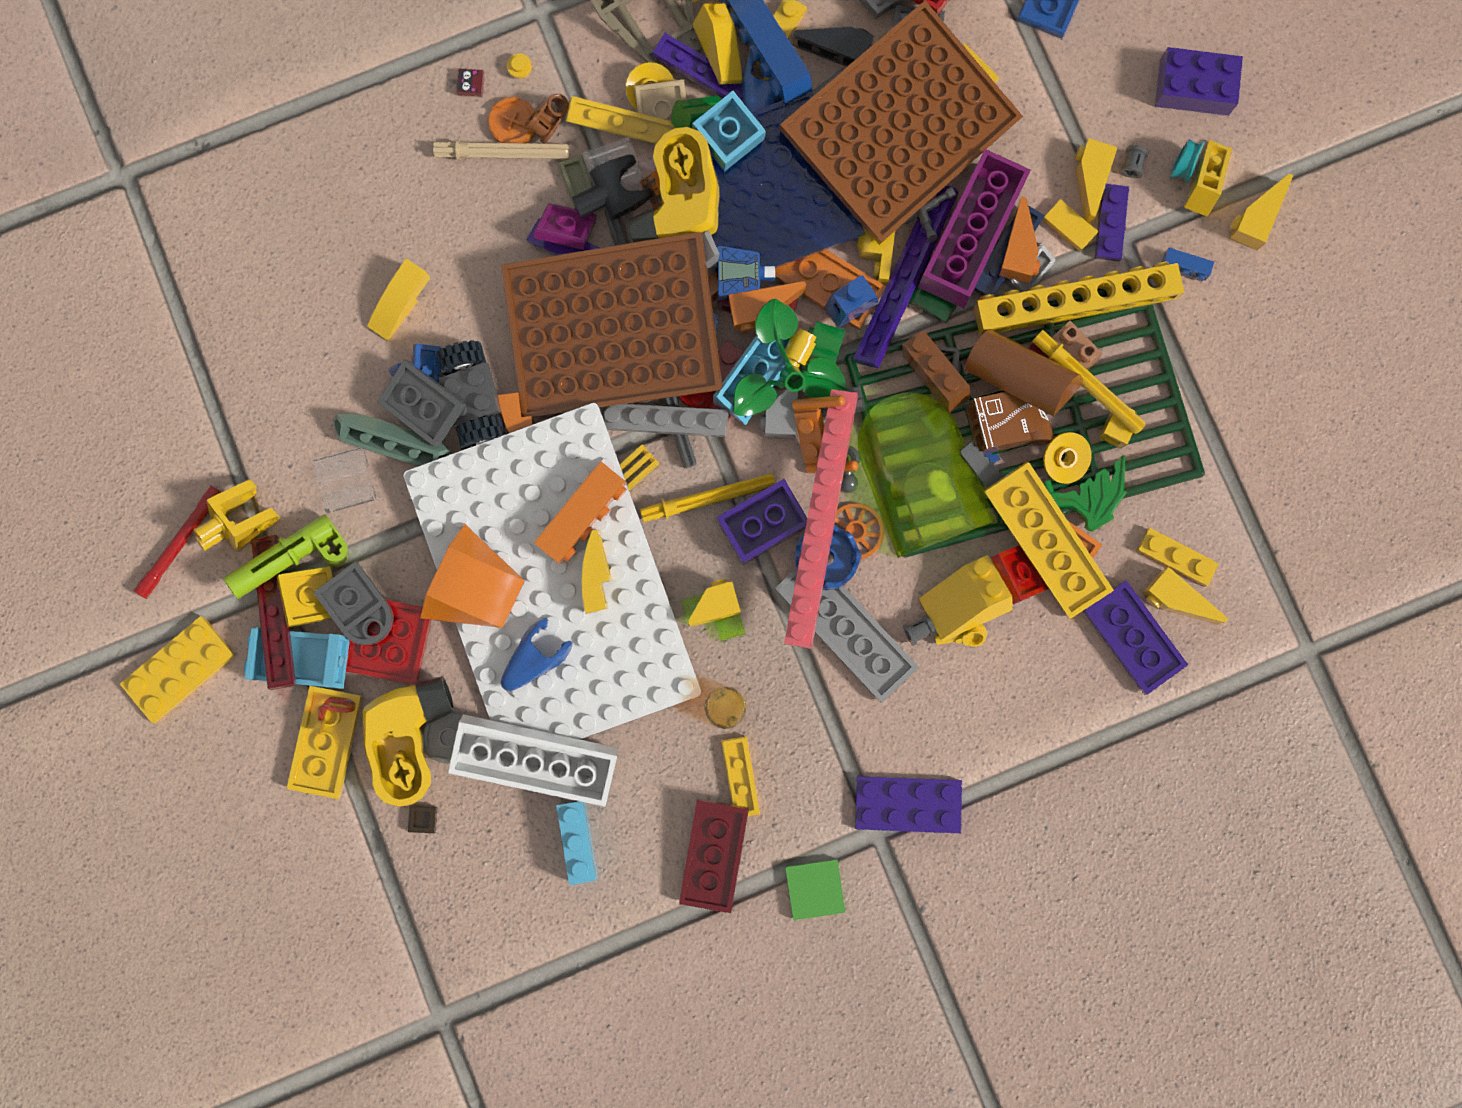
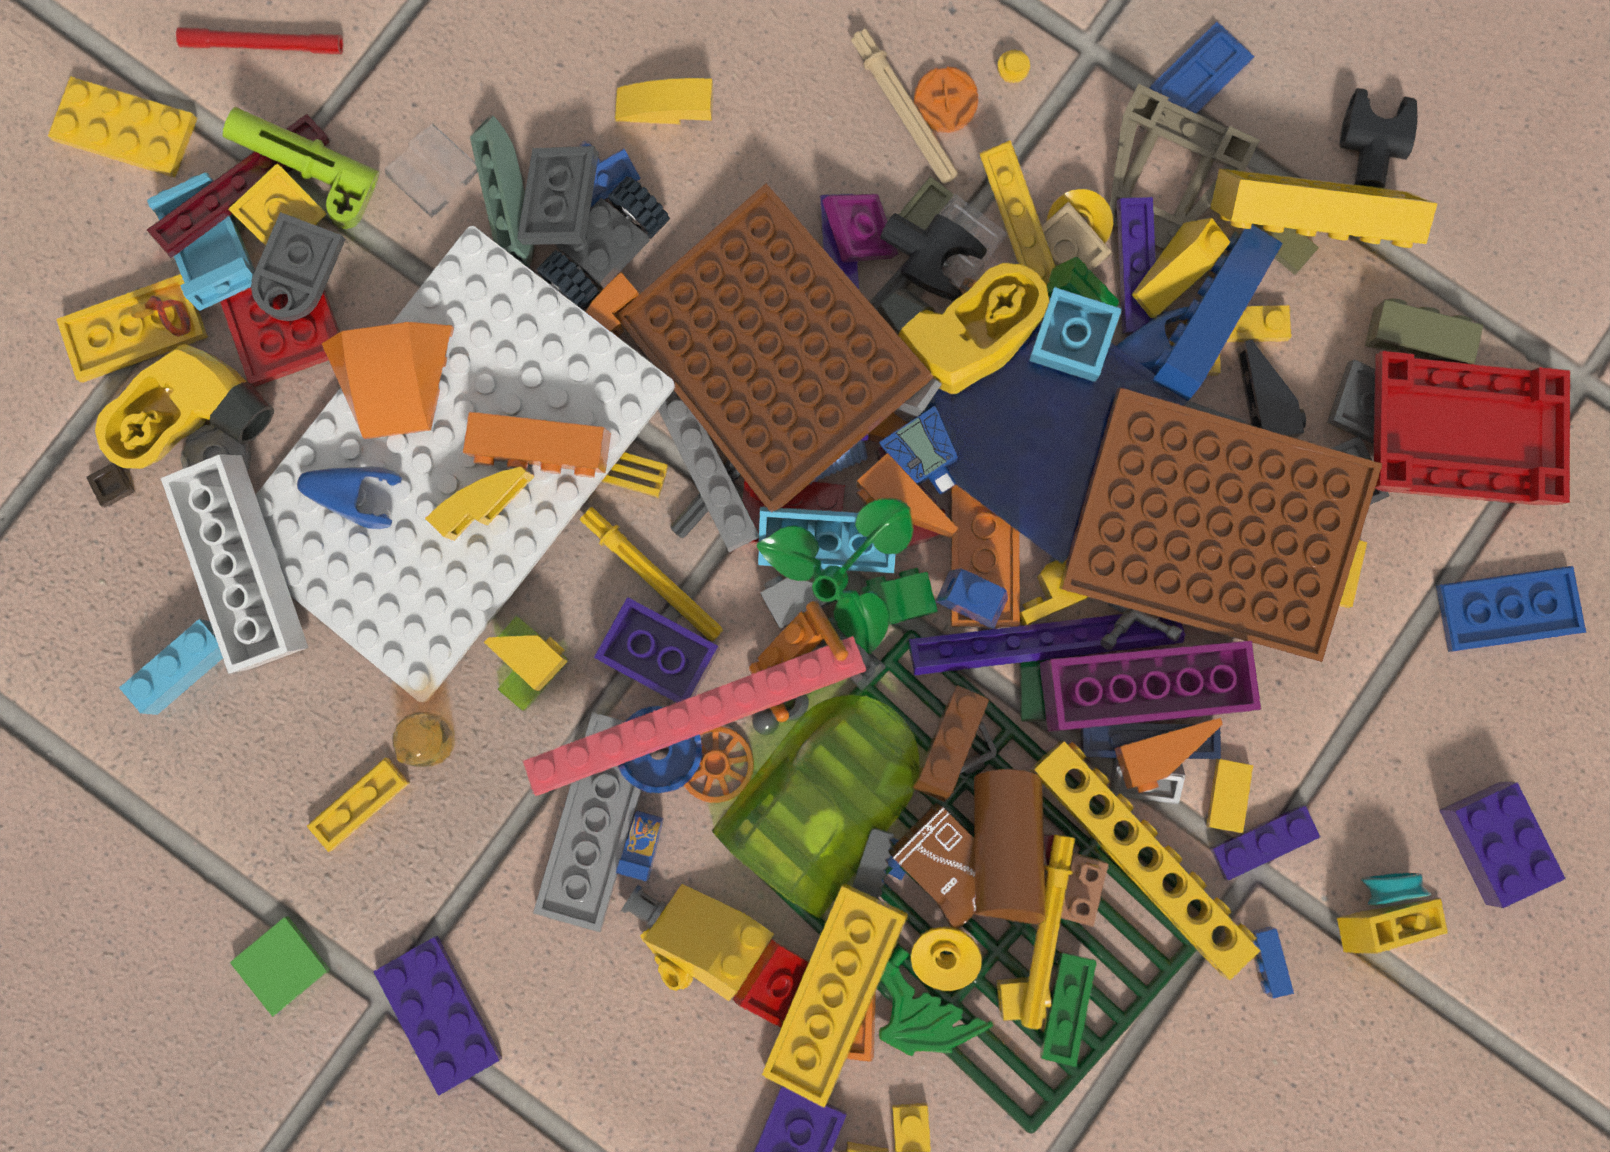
camera: 60 degrees right, 0 degrees up
(237, 534) = (319, 59): yellow piece -> none
(470, 82) = (960, 26): tile -> none
(544, 119) = (966, 129): dark orange piece -> none
(714, 855) = (249, 828): dark red plate -> none
(800, 347) = (879, 571): yellow brick -> none
(880, 608) = (641, 846): none -> blue leg
(1092, 174) = (1308, 784): yellow slope -> none
(1134, 161) = (1354, 825): dark grey bush -> none
(1143, 402) = (1068, 1009): none -> green plate
(1258, 219) = (1375, 1016): yellow slope -> none

